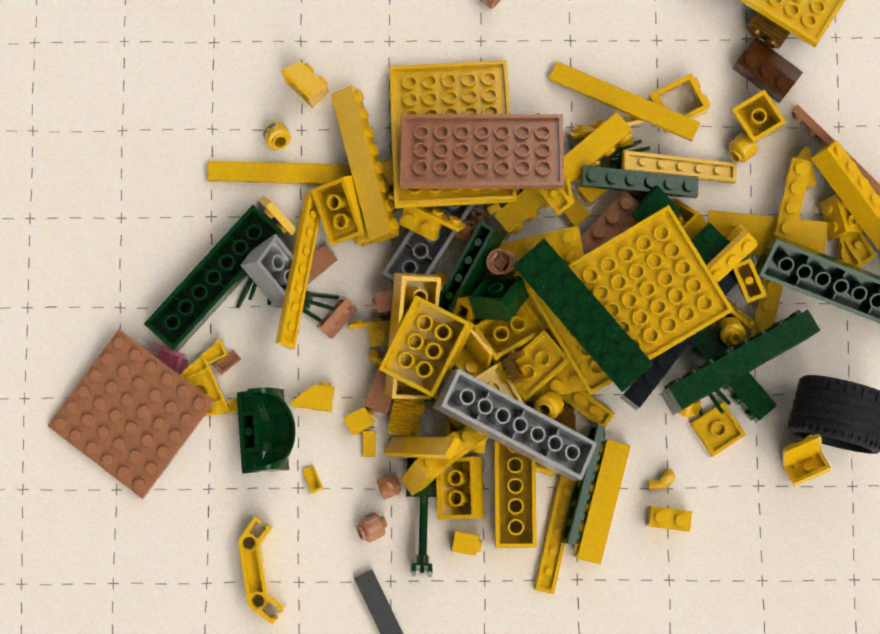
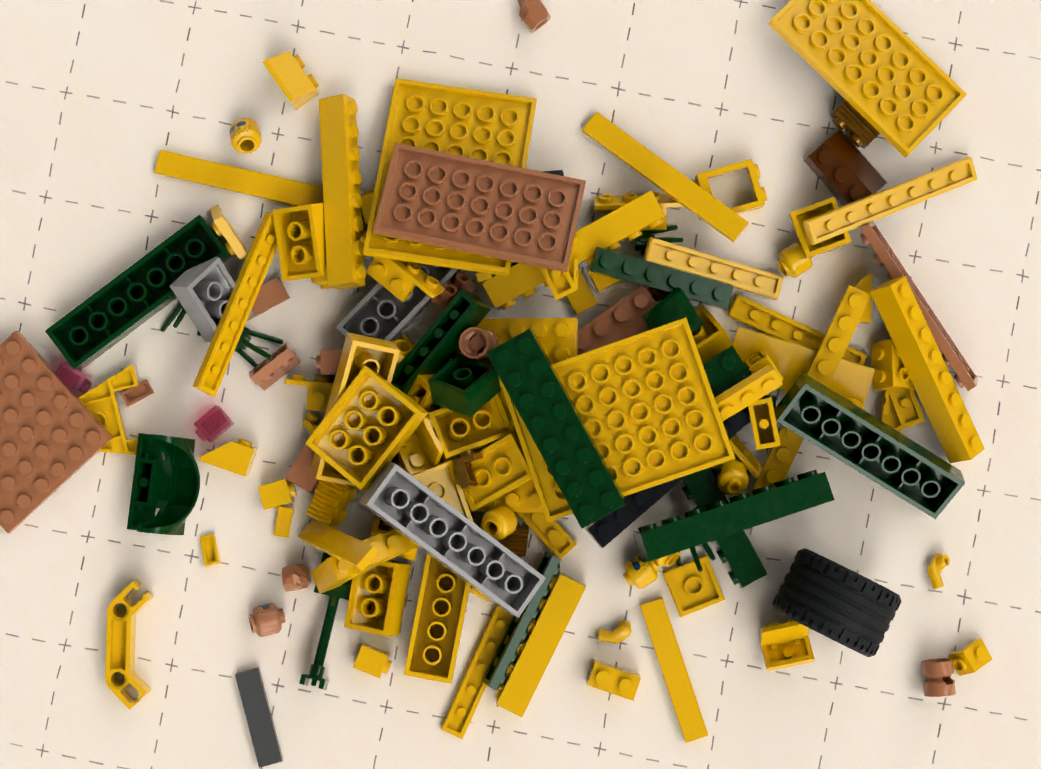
camera: 15 degrees right, 5 degrees up
(295, 374) = (213, 424): none -> clear pink brick
(672, 425) = (640, 572): none -> yellow head
(716, 501) = (674, 670): none -> yellow tile
(740, 203) = (782, 327): none -> yellow tile
(809, 84) = (889, 200): none -> yellow tile

